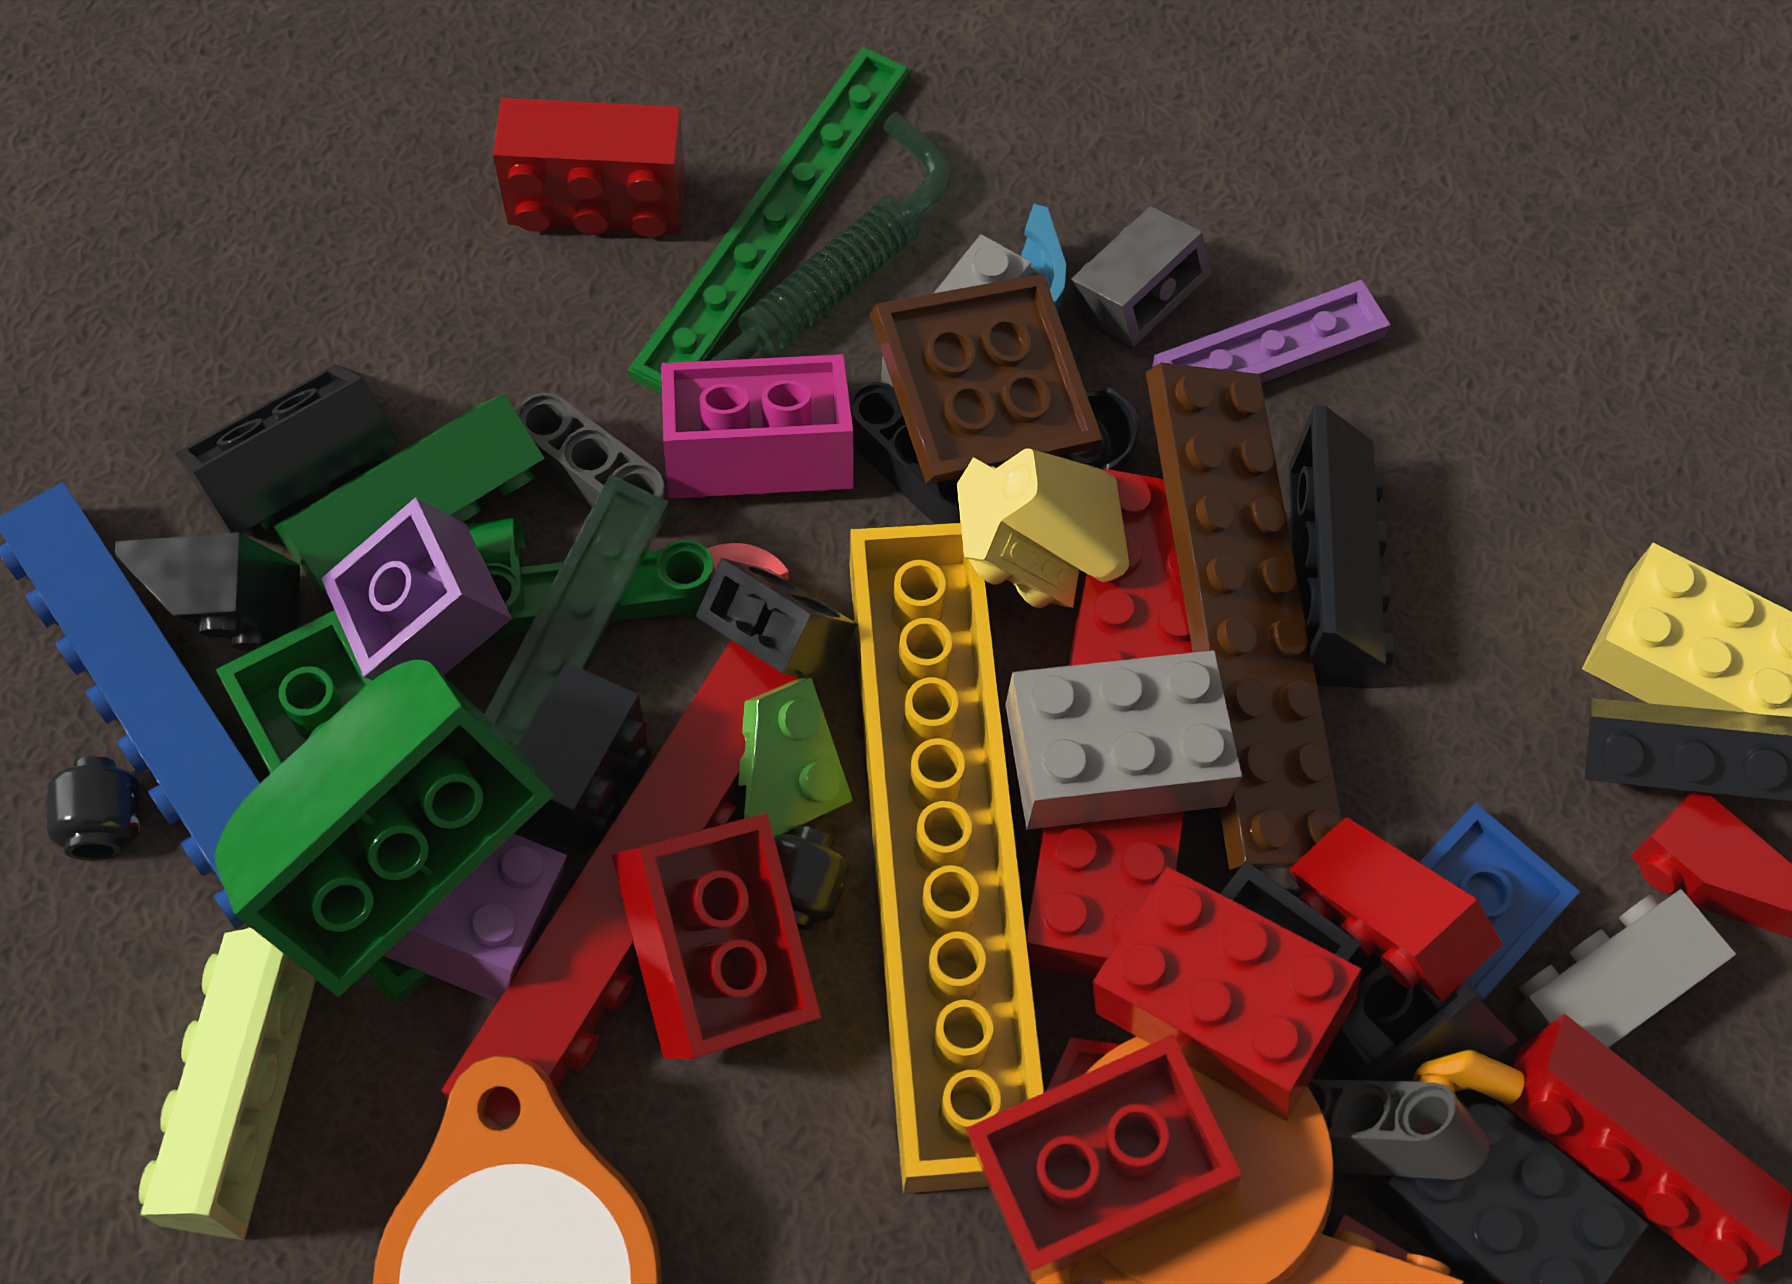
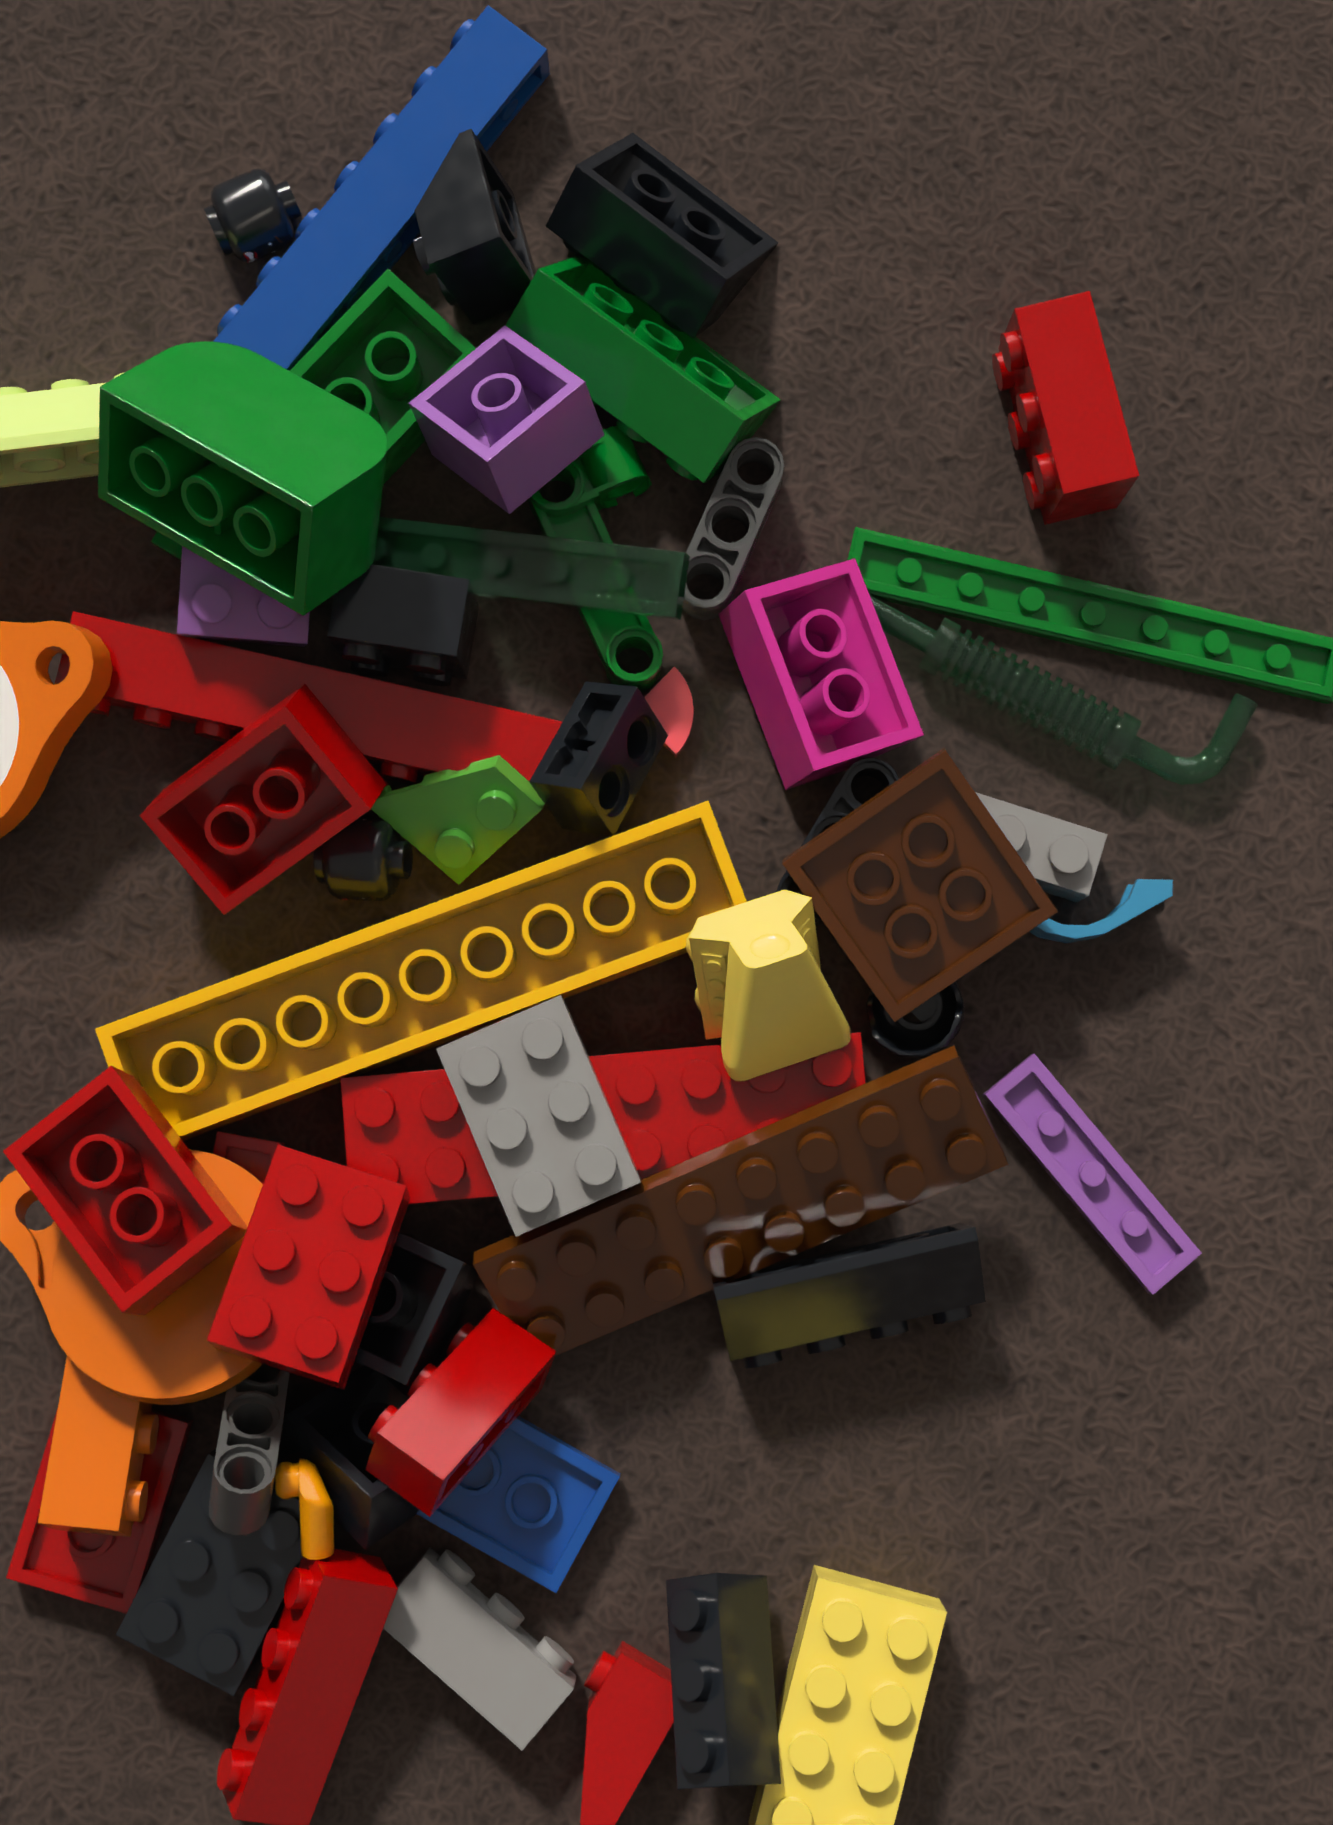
camera: 80 degrees right, 20 degrees up
(1141, 276) = (1125, 1016): flat silver brick -> none

